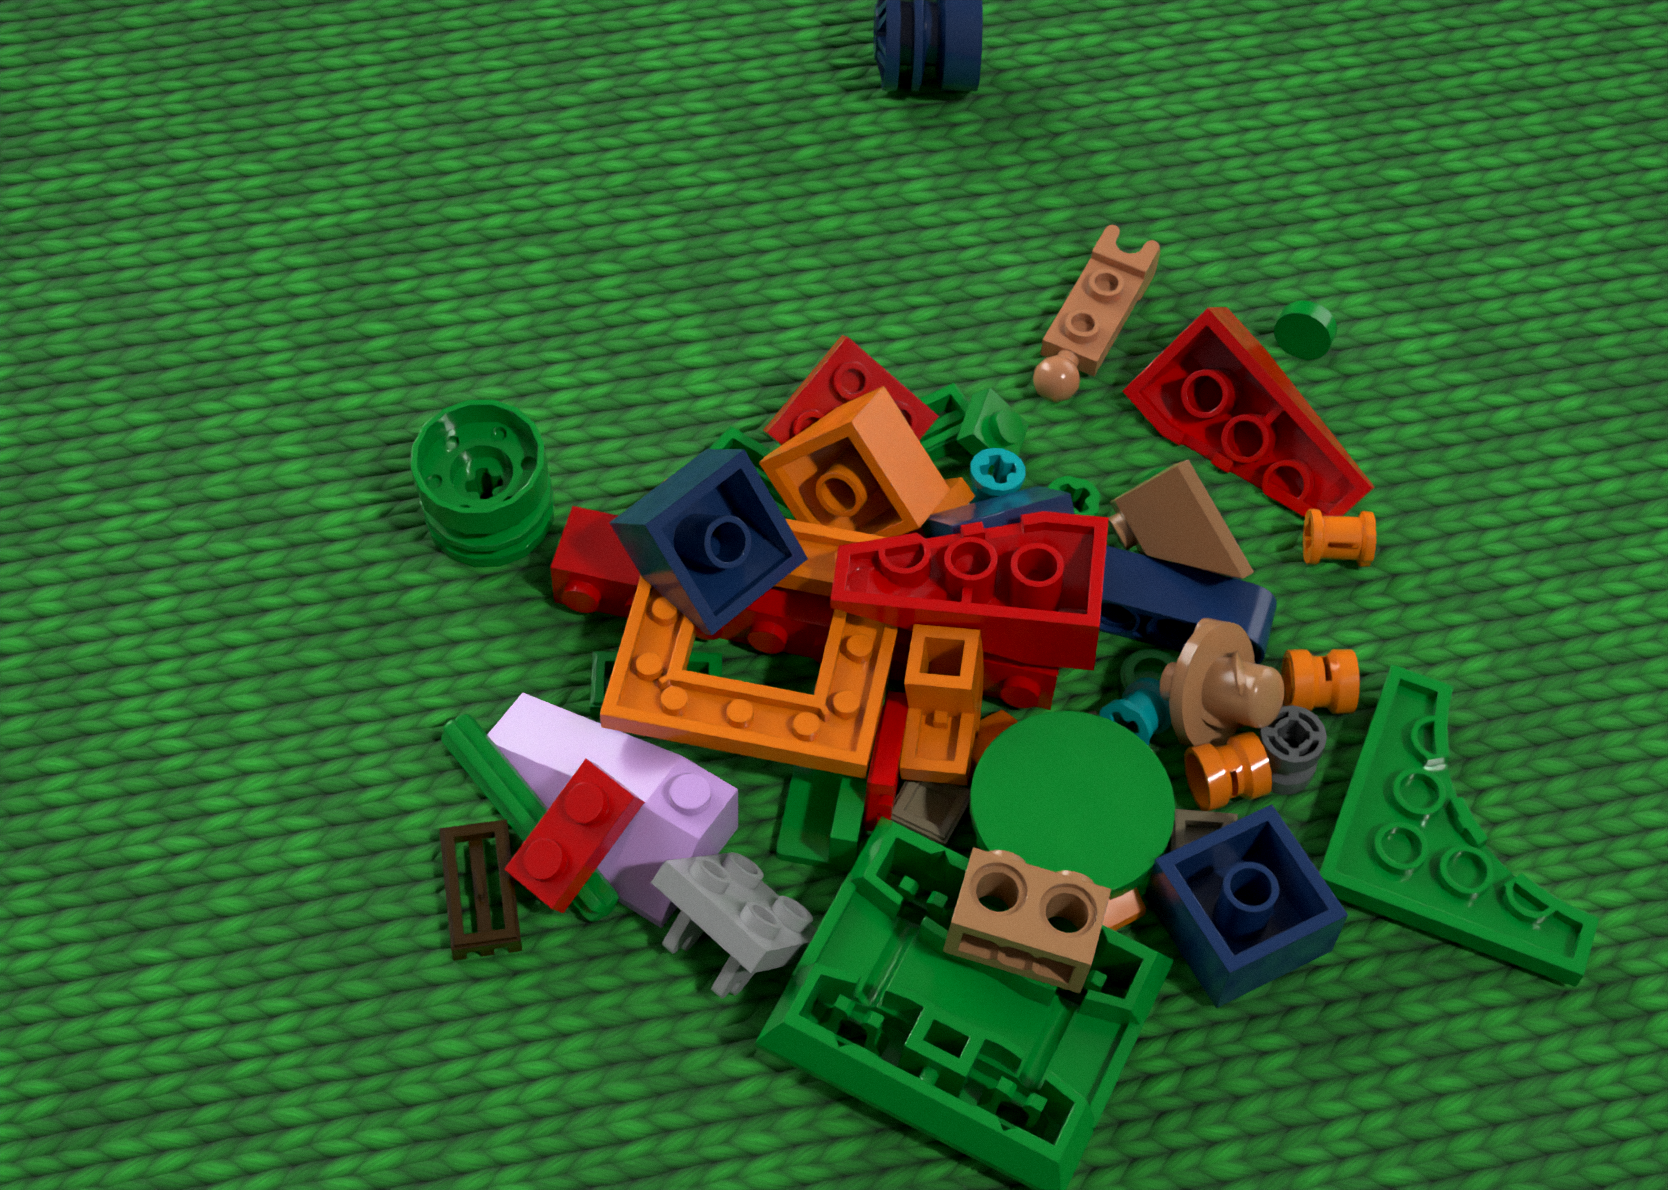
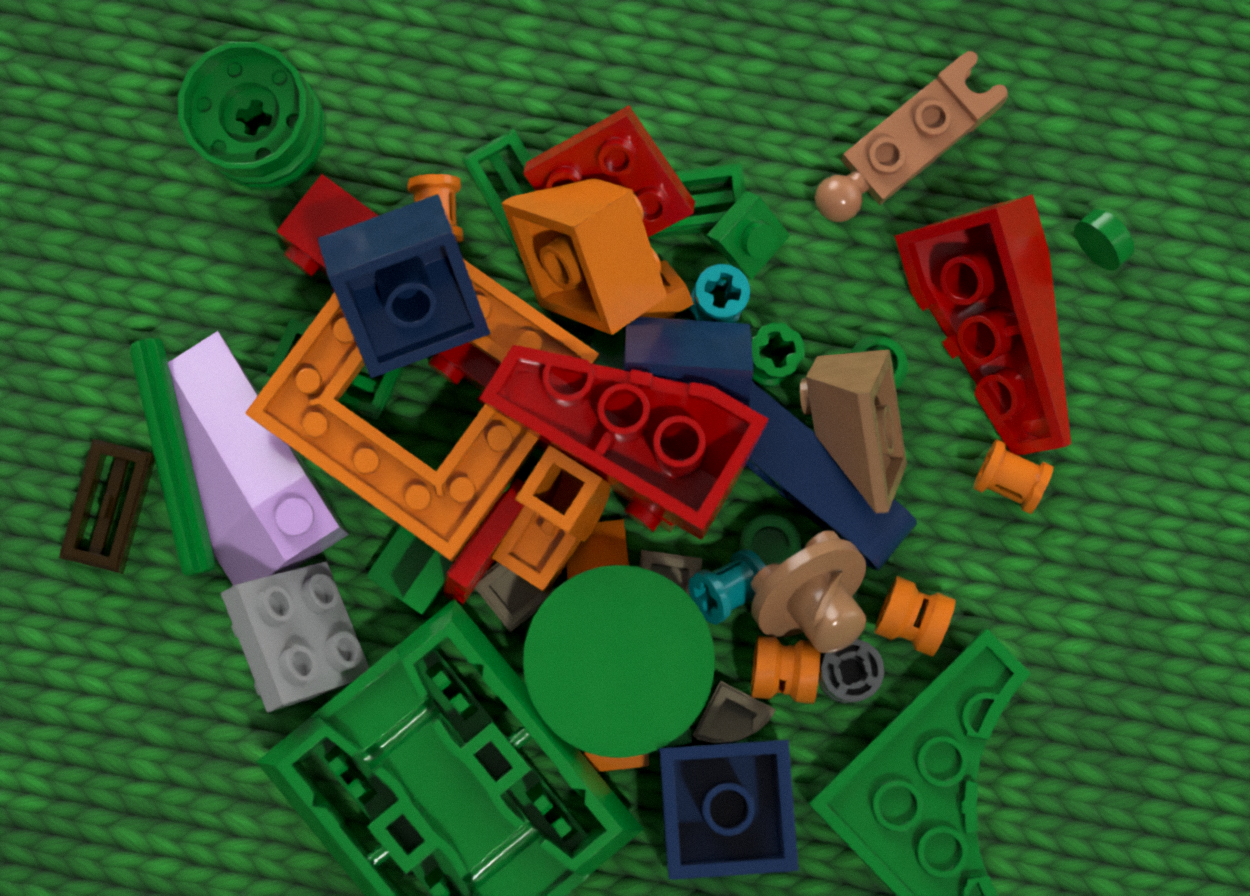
camera: 25 degrees right, 25 degrees up
(574, 836) = (189, 506): red plate -> none
(1022, 936) = (501, 781): medium nougat brick -> none

